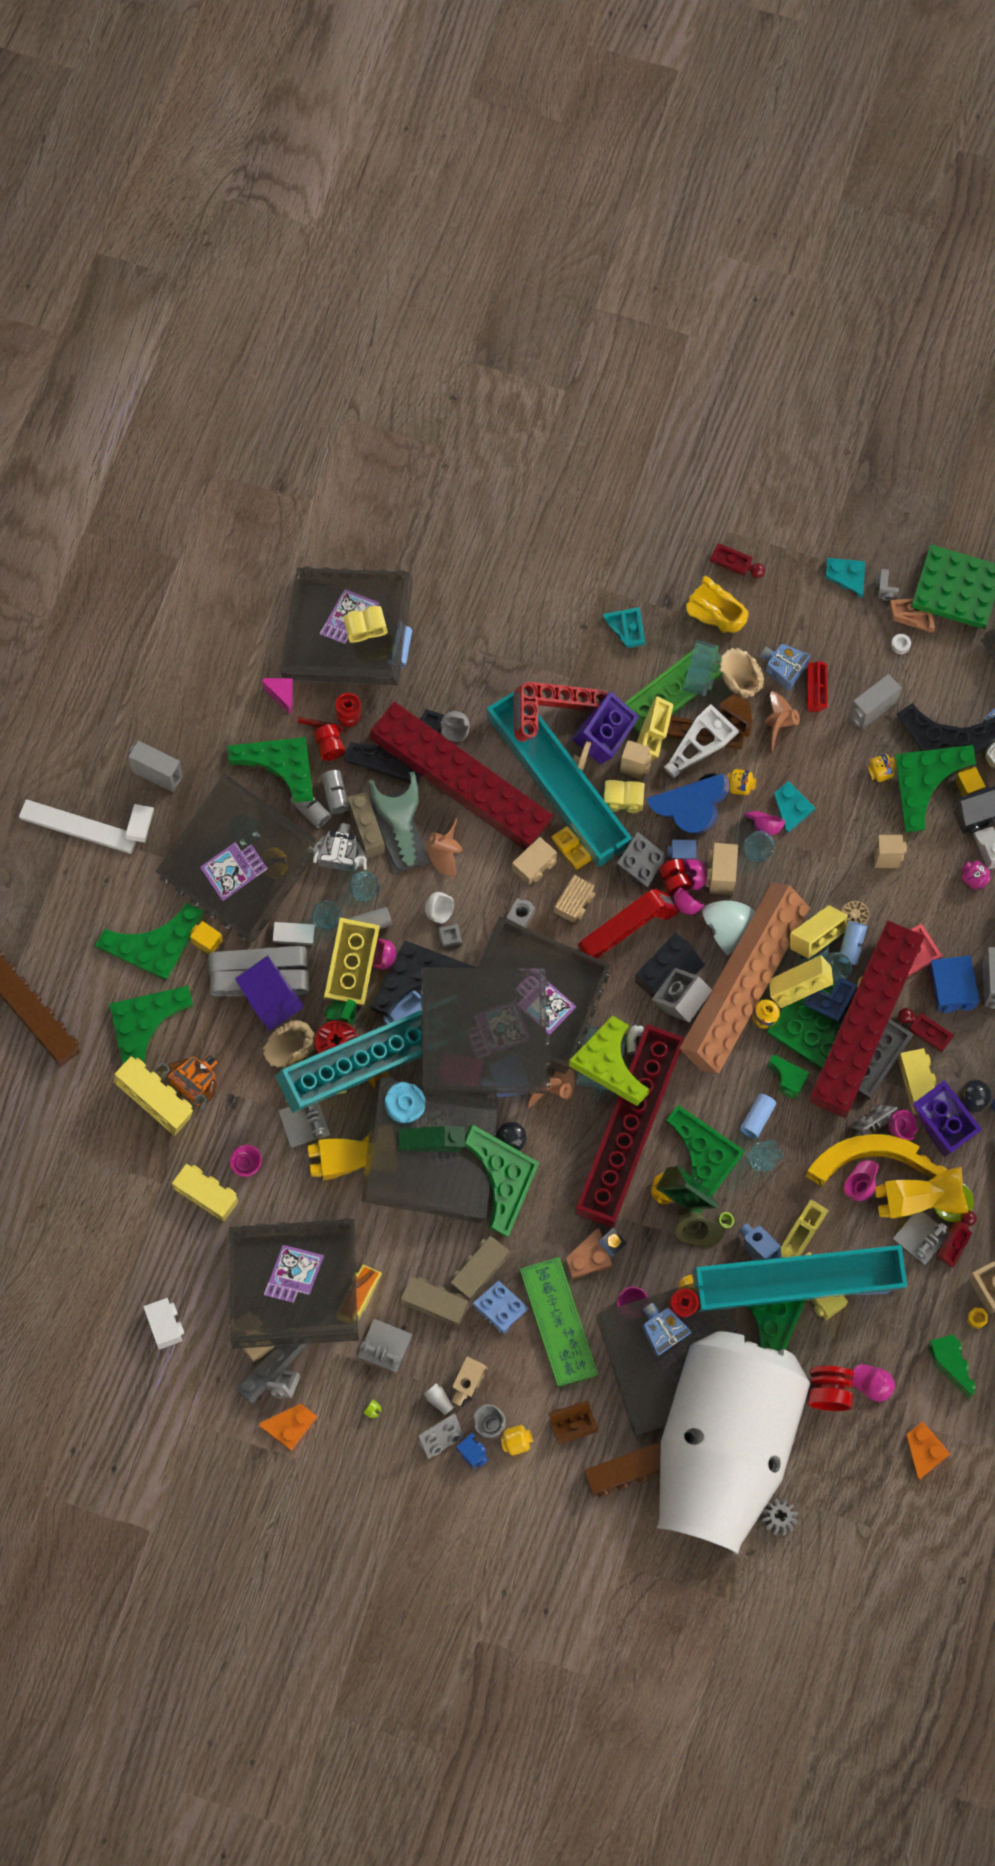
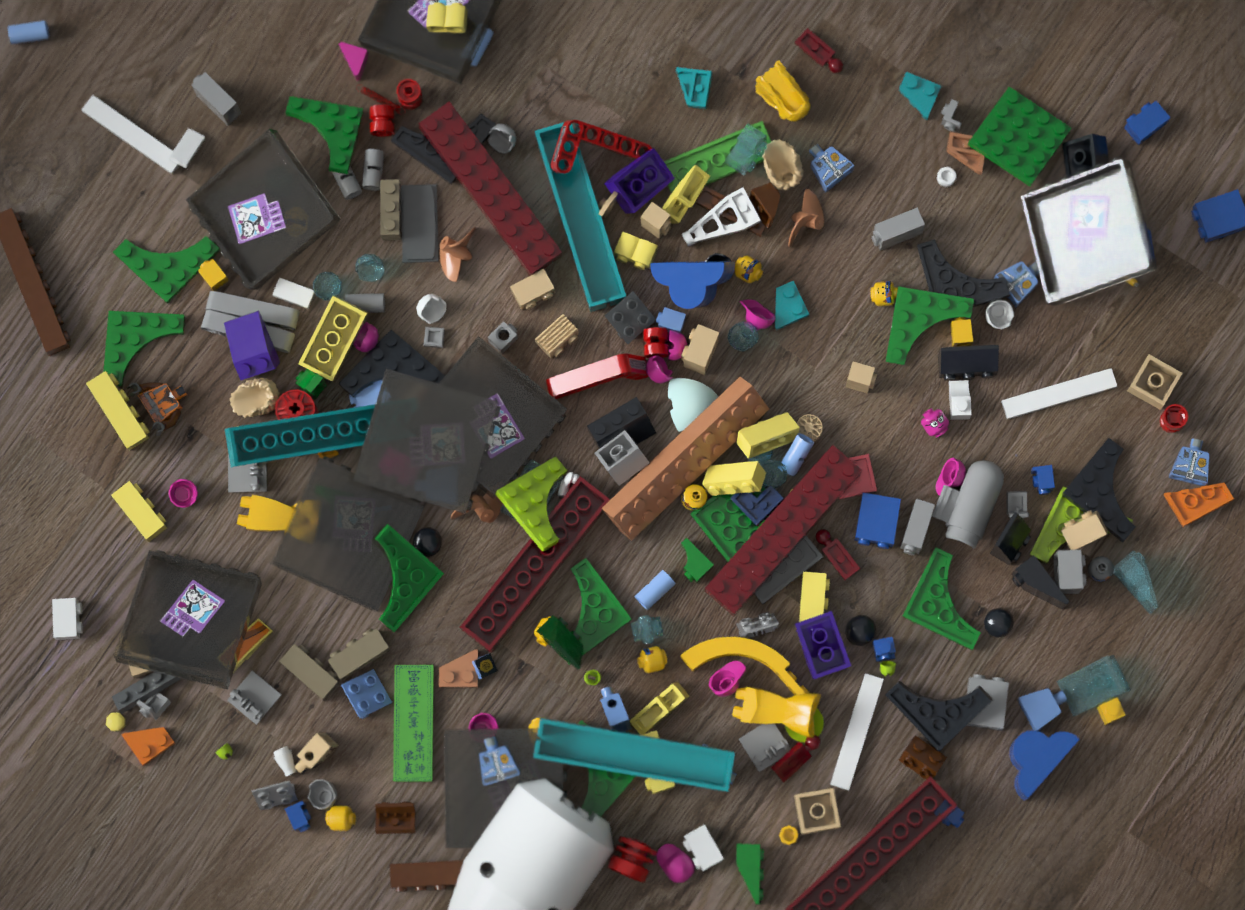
camera: 25 degrees right, 10 degrees up
(248, 1414) = (115, 722): none -> light yellow tile
(341, 850) = (359, 227): torso -> none
(399, 814) = (423, 210): sand green animal -> none
(404, 1102) = (335, 486): medium azure tile -> none
(432, 1139) = (348, 526): dark green slope -> none
(571, 848) = (571, 286): yellow slope -> none
(683, 1303) = (521, 746): red wheel -> none
(697, 1230) = (562, 677): olive piece -> none
(779, 1184) = (652, 659): none -> yellow head
(816, 686) = (852, 196): red piece -> none
(897, 1357) = (703, 848): none -> white brick
(902, 1125) = (783, 638): dark pink hair -> none

